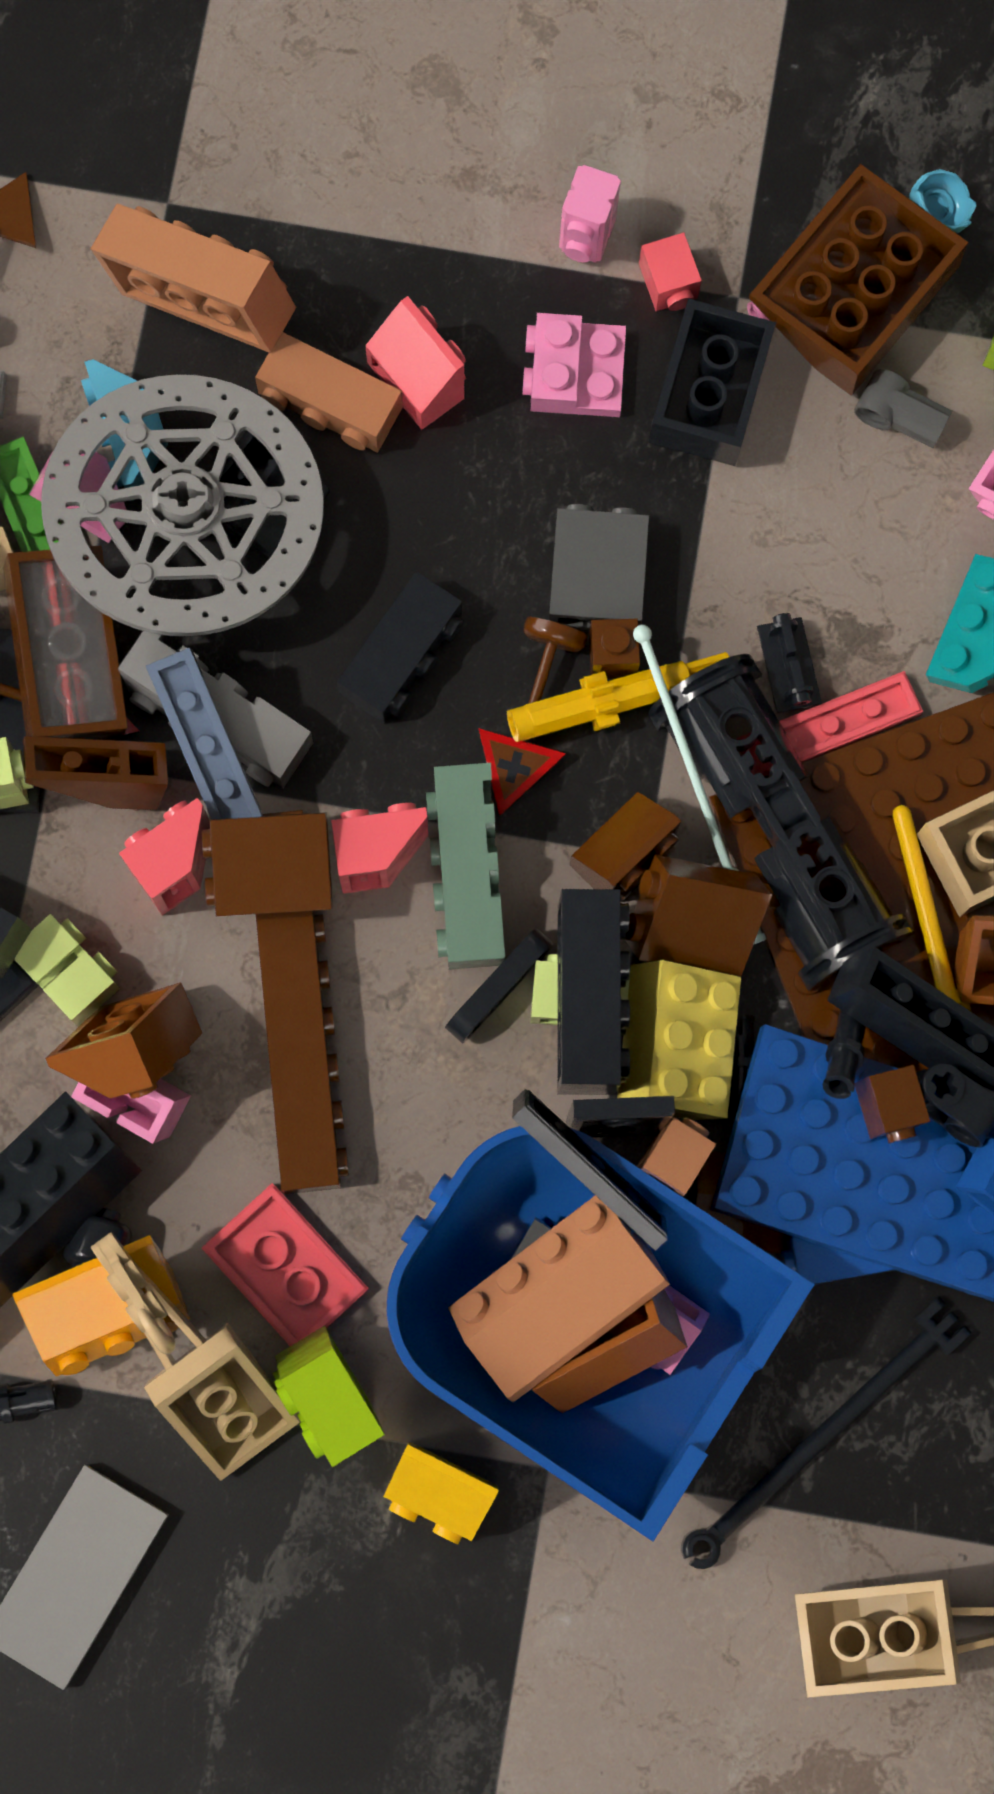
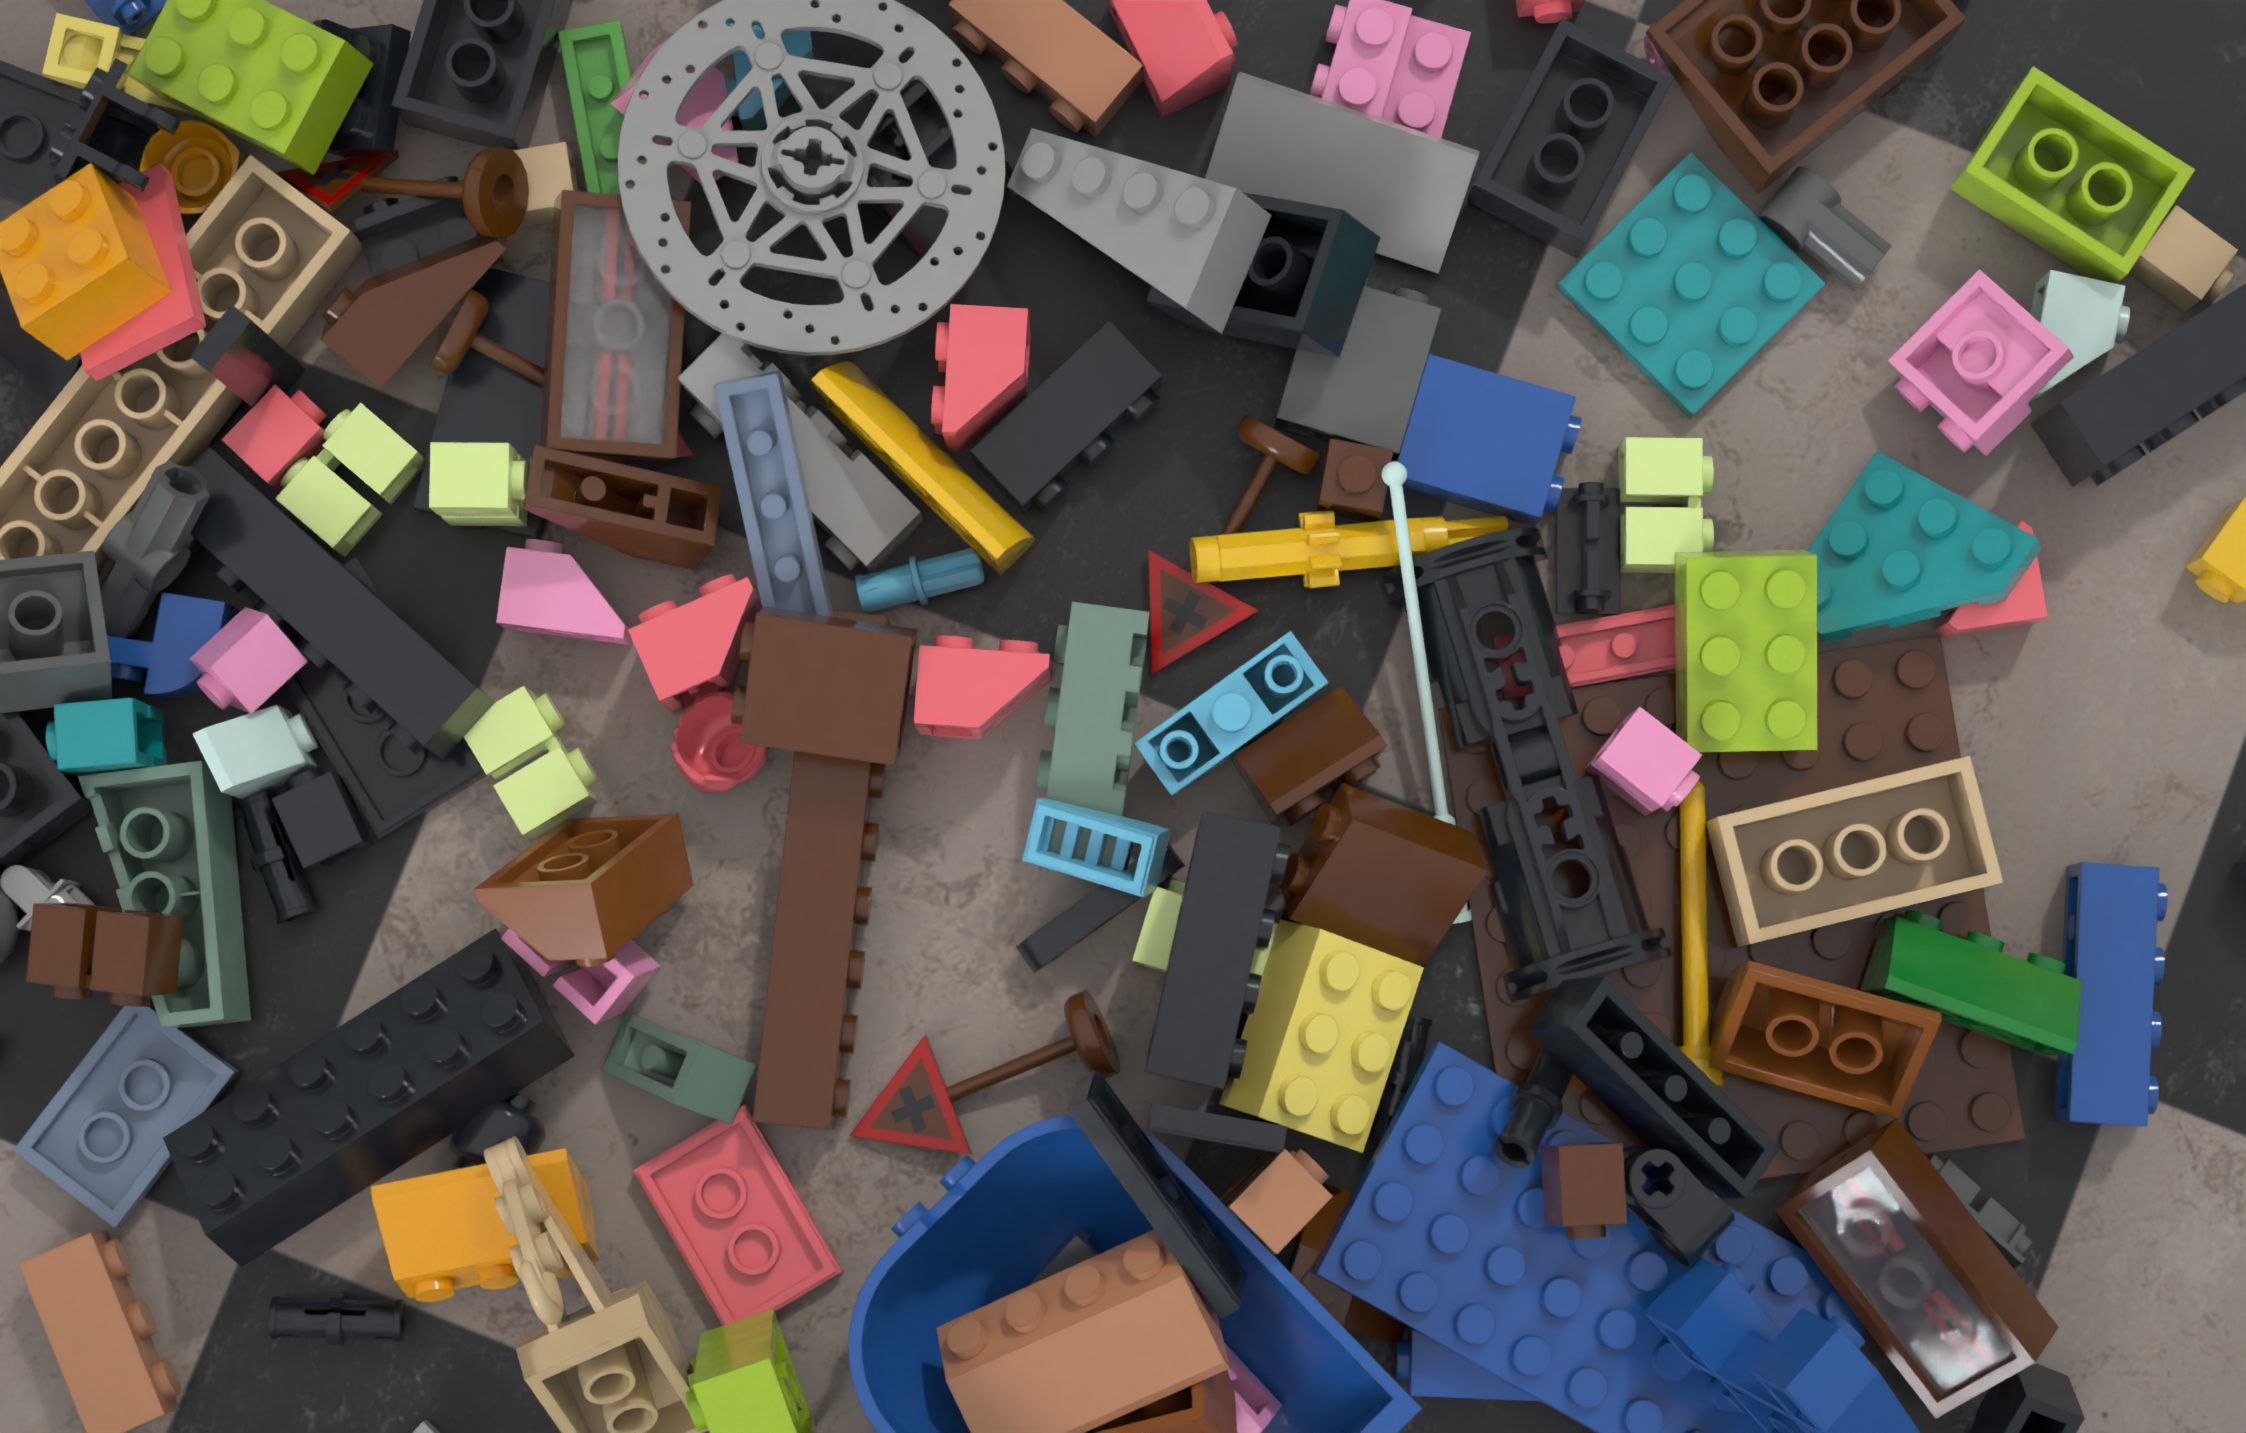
camera: 15 degrees right, 5 degrees up
(60, 849) = (555, 597): none -> bright pink slope
(196, 930) = (709, 746): none -> coral hair
(219, 1165) = (678, 1068): none -> sand green slope
(304, 702) = (922, 465): none -> yellow slope
(320, 782) = (919, 580): none -> medium azure axle
(335, 619) = (985, 370): none -> coral slope
(400, 1158) = (920, 1108): none -> reddish brown piece
(433, 492) = (1157, 222): none -> light grey wedge
(507, 956) = (1127, 830): none -> medium azure slope
(518, 511) = (1299, 282): none -> black brick
(555, 438) = (1336, 157): none -> light grey tile
(564, 827) = (1231, 714): none -> medium azure slope
(701, 602) = (1487, 441): none -> blue brick
(818, 468) = (1690, 285): none -> teal plate
(832, 612) = (1663, 474): none -> yellowish green piece
(866, 798) = (1646, 764): none -> bright pink piece
(918, 705) = (1746, 650): none -> lime brick

